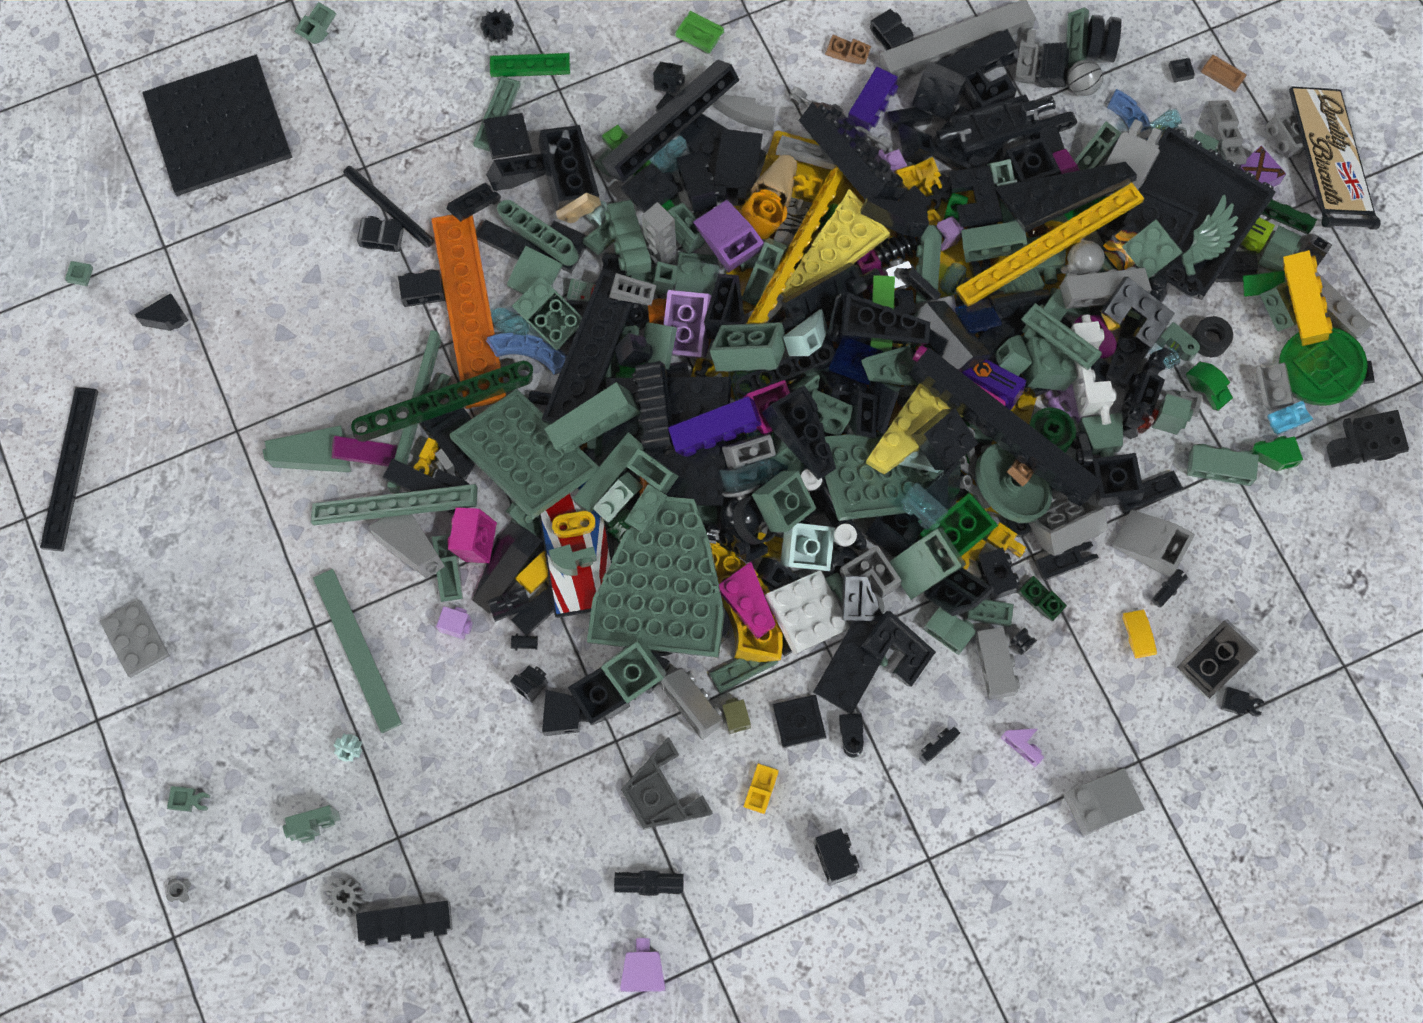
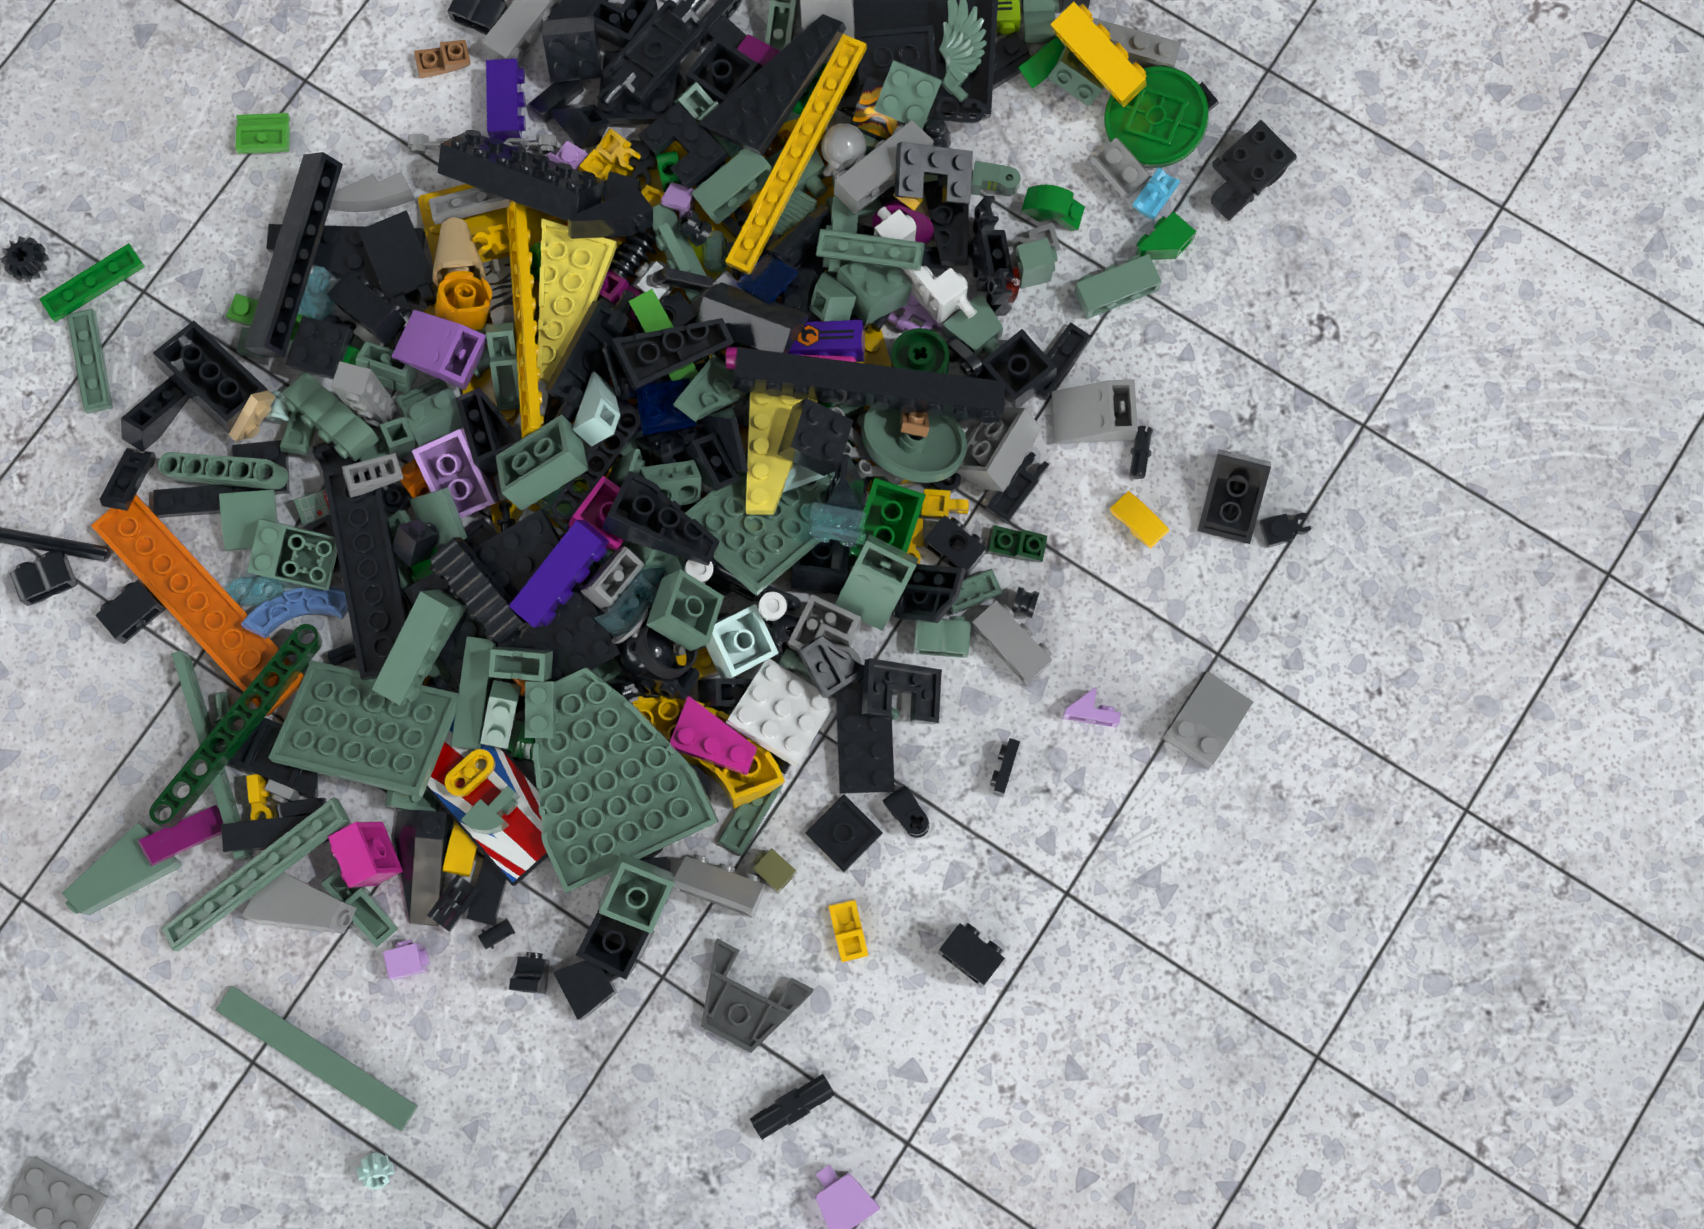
camera: 30 degrees left, 5 degrees up
(507, 136) = (117, 380): black plate -> none
(668, 77) = (260, 206): black brick -> none
(948, 254) = (694, 228): none -> black wheel
(1172, 359) = (999, 202): clear light blue bush -> none
(1219, 327) = (1029, 138): black tyre -> none

